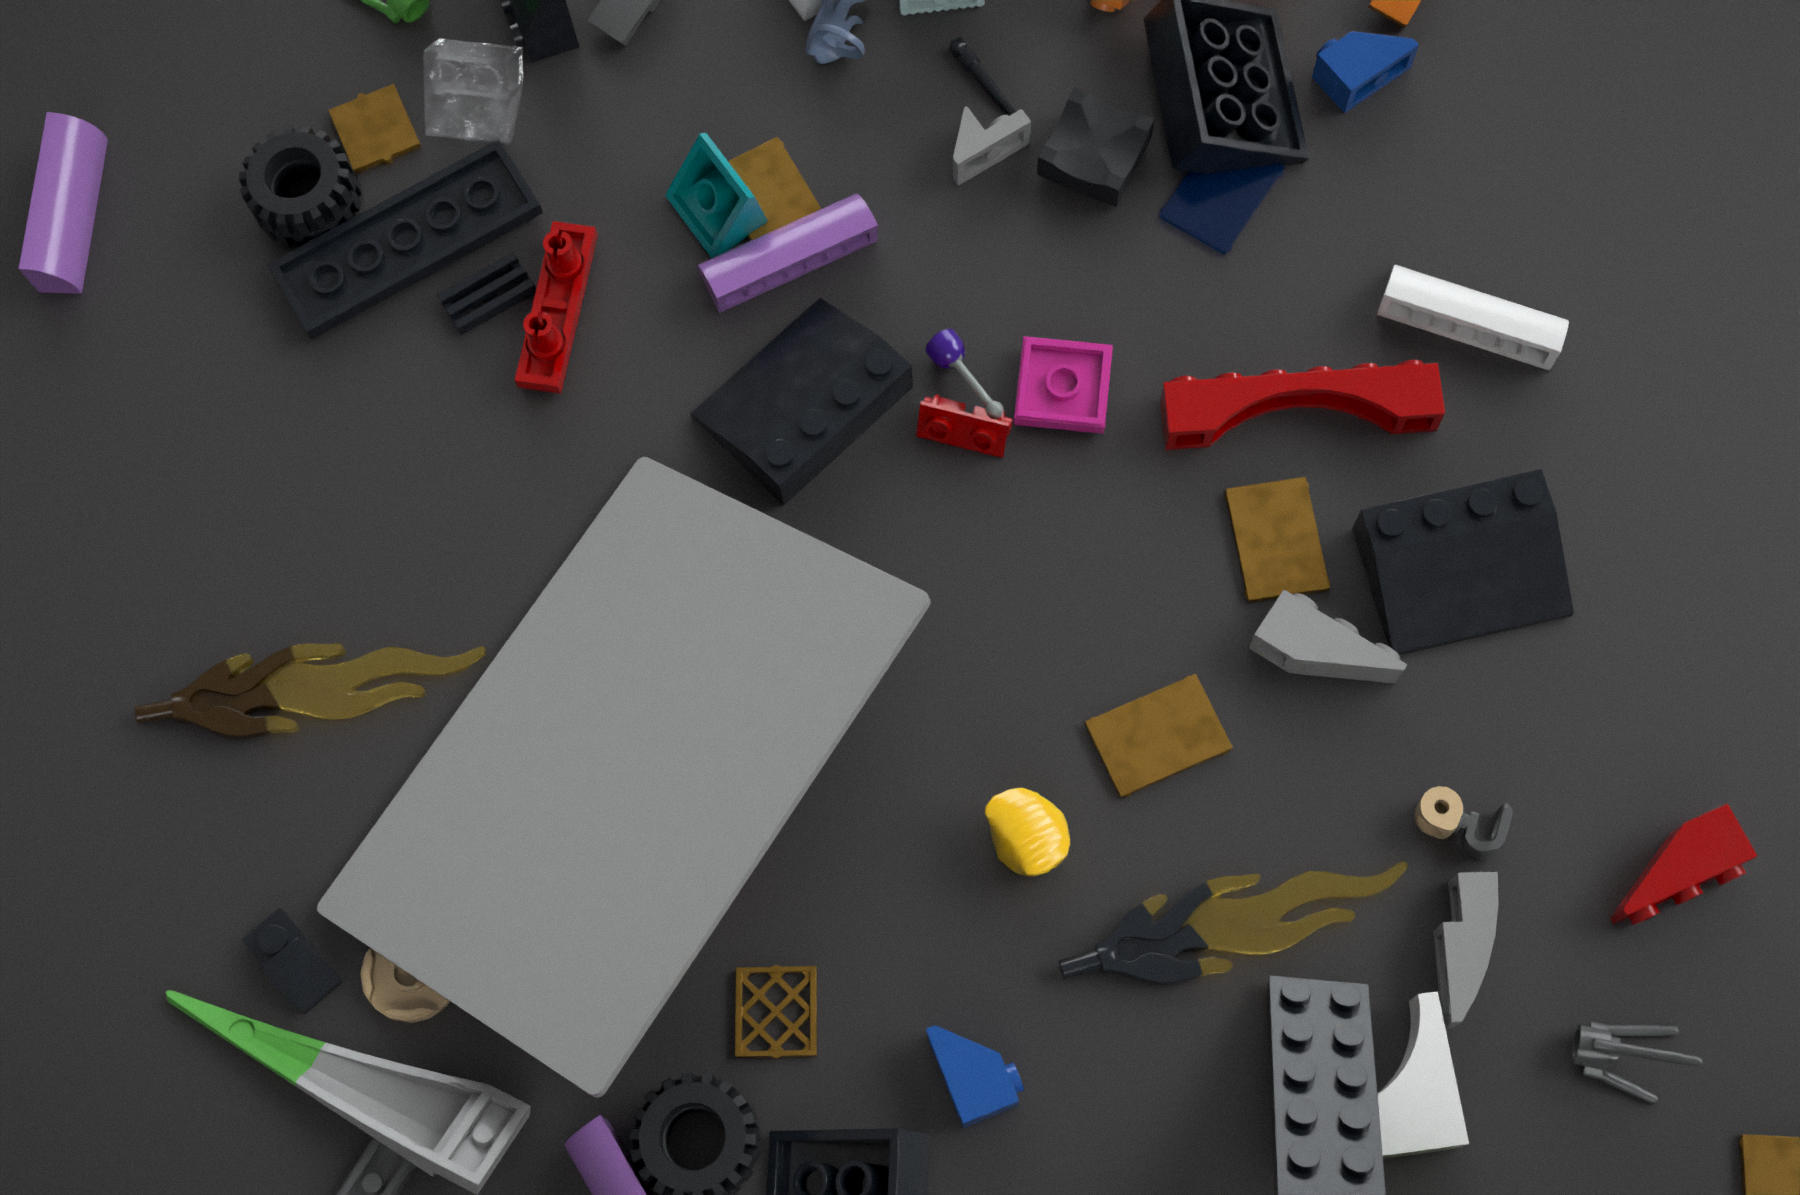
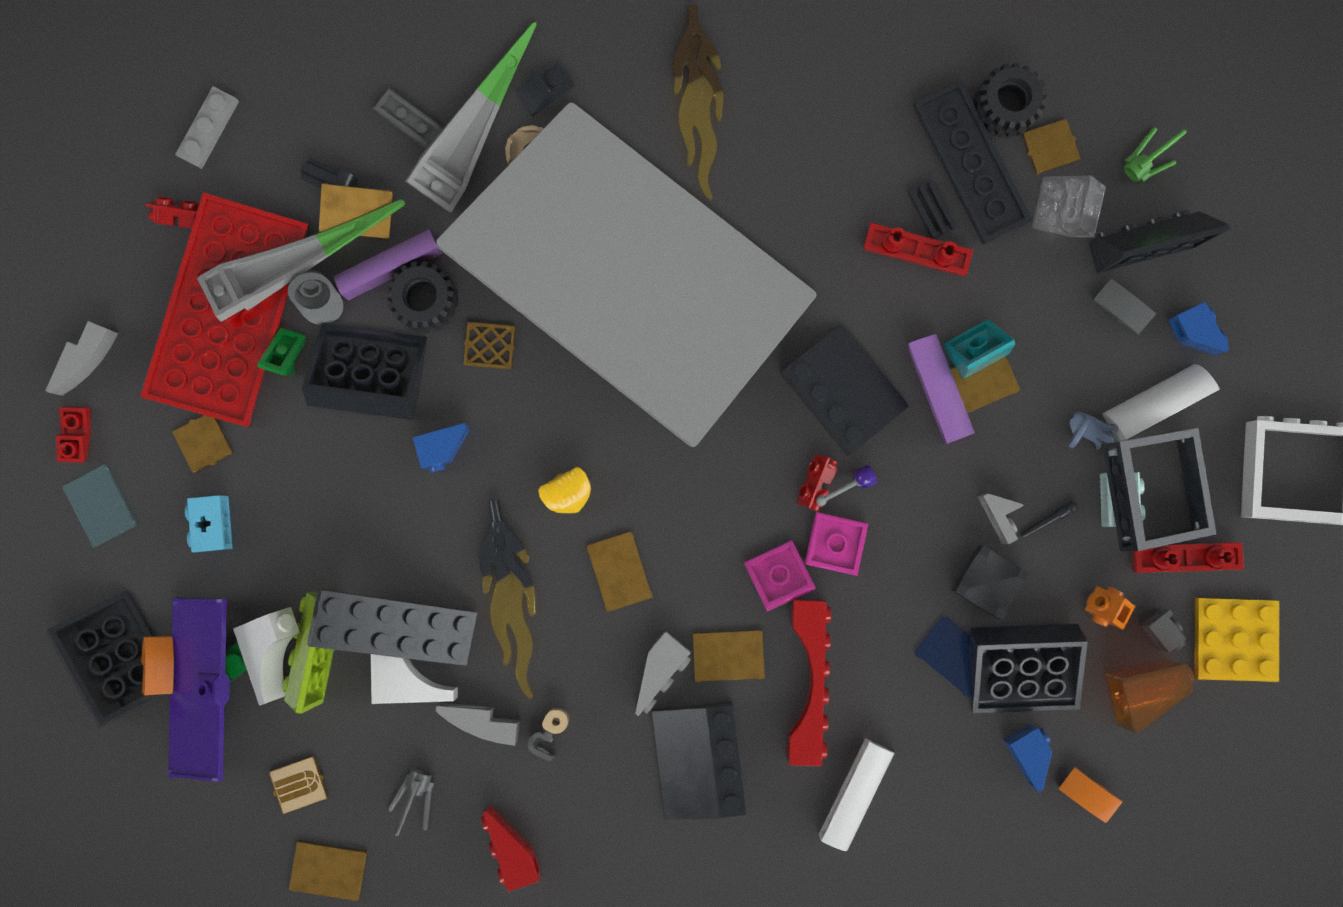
camera: 90 degrees right, 15 degrees up
(1129, 467) = (779, 575): none -> dark pink plate

